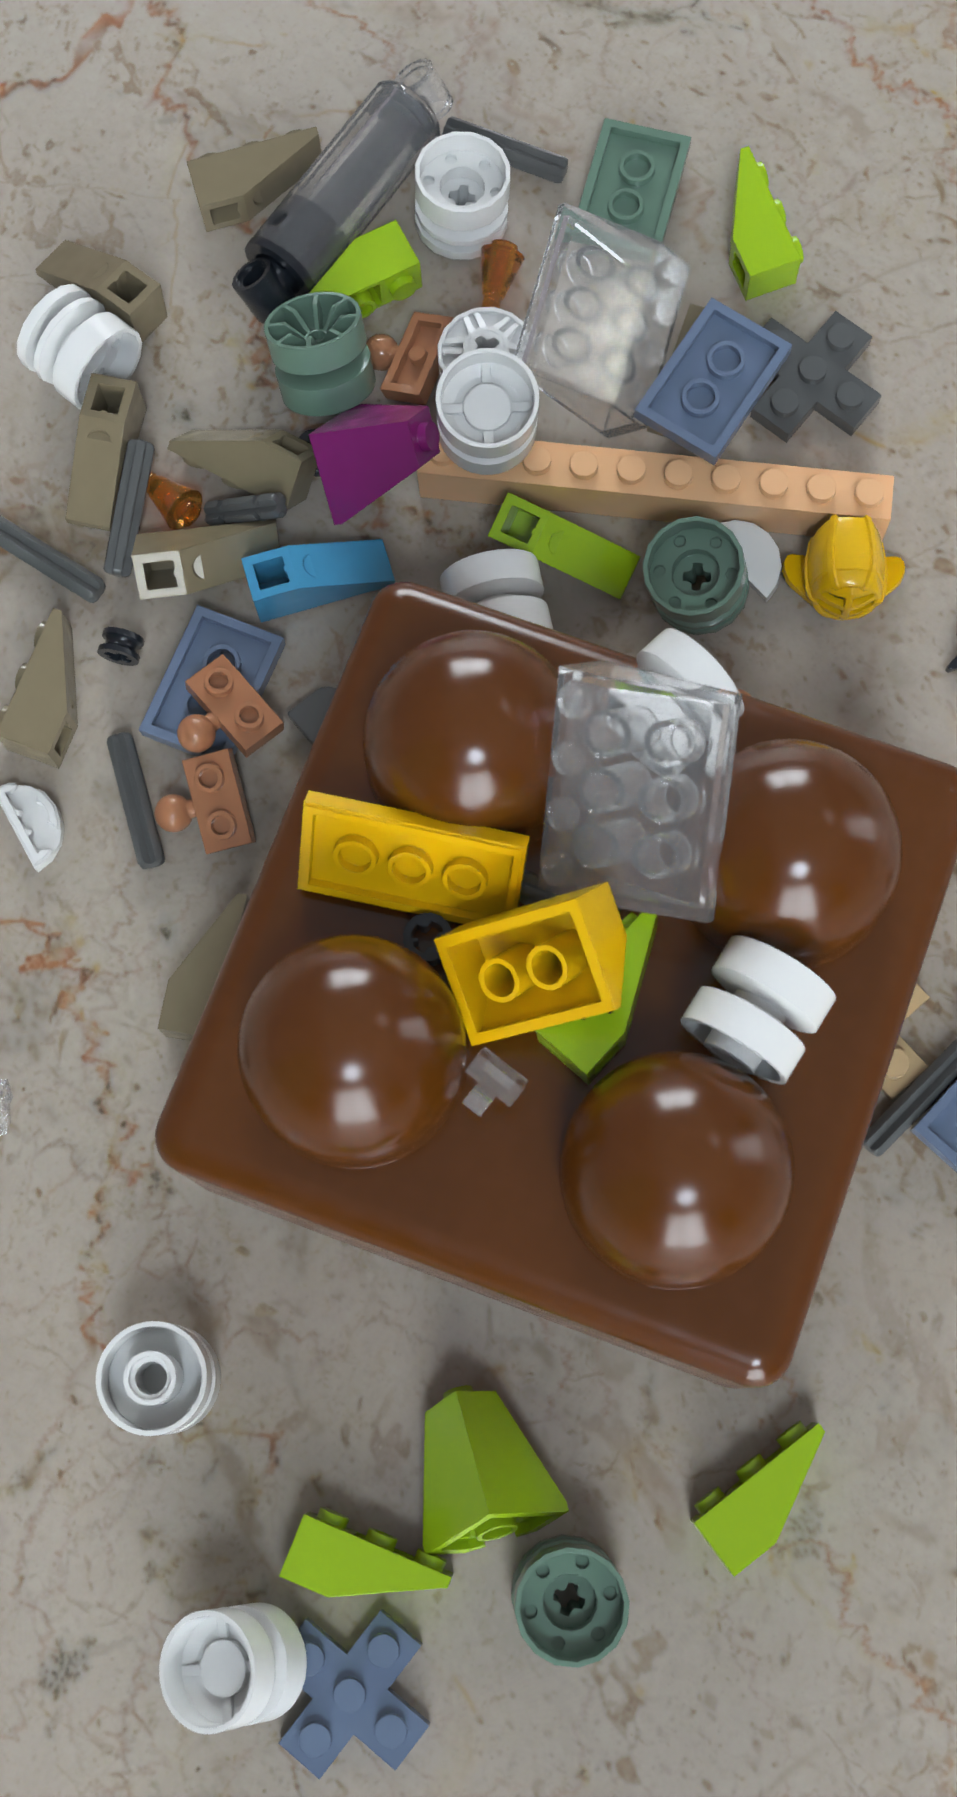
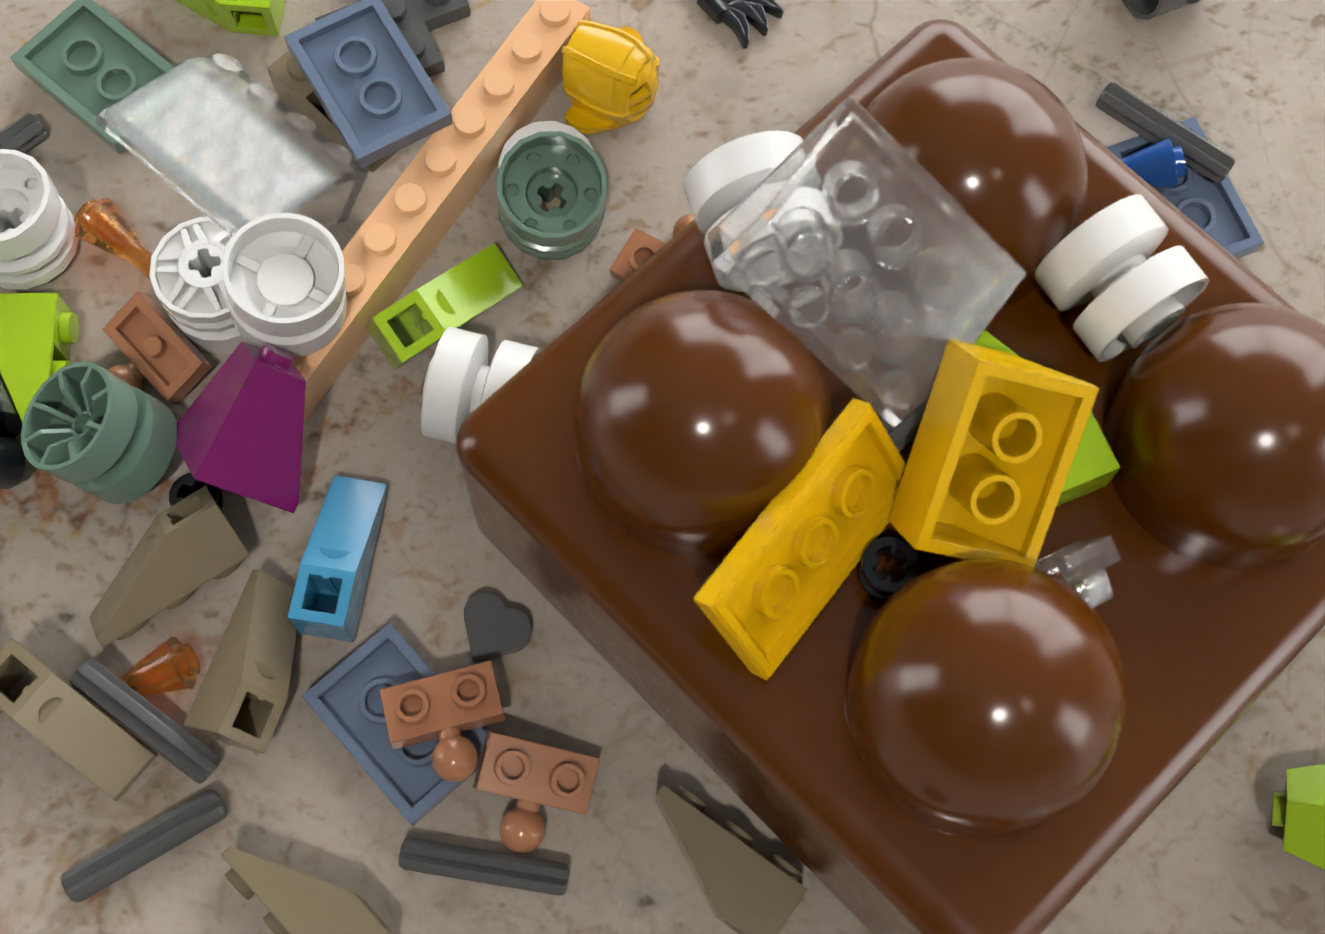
camera: 75 degrees left, 5 degrees down
(120, 646) = (300, 802): black bush -> none
(245, 509) = (222, 596): dark grey axle -> none

